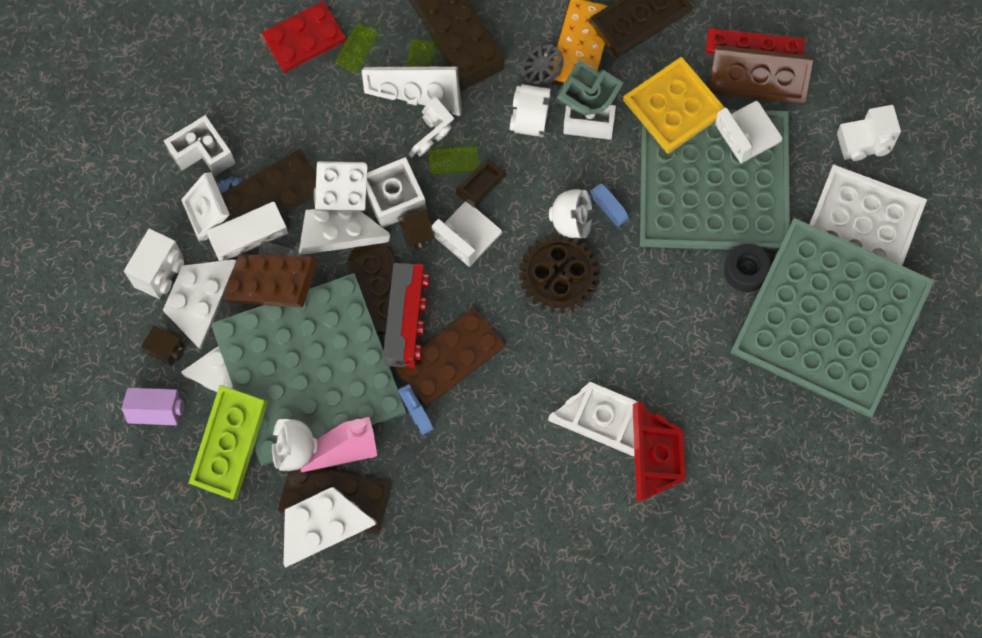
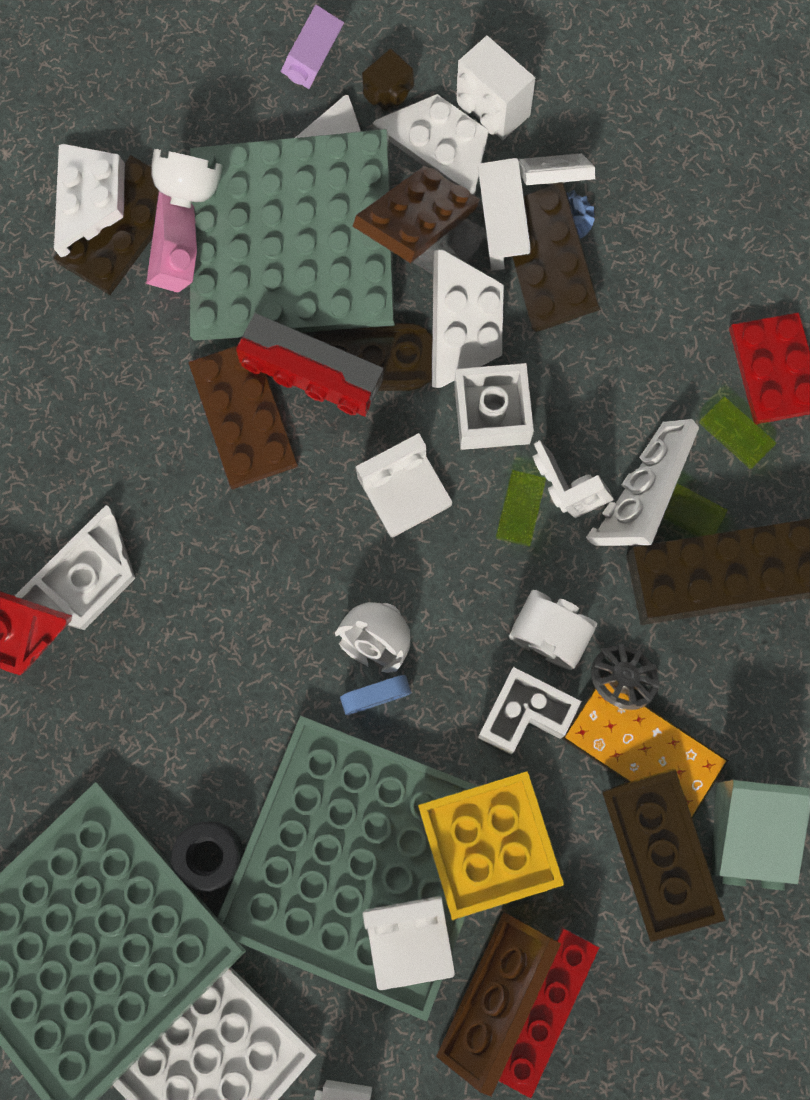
camera: 110 degrees right, 5 degrees up
(198, 142) = (650, 189): white brick -> none
(228, 442) = (229, 114): lime plate -> none
(340, 186) = (515, 329): white bracket -> none
(415, 409) = (186, 347): medium blue piece -> none
(416, 229) = (431, 418): dark brown brick -> none
(480, 183) = (472, 531): dark brown tile -> none
(577, 286) = (271, 605): dark brown gear -> none
(588, 89) = (540, 711): sand green brick -> none

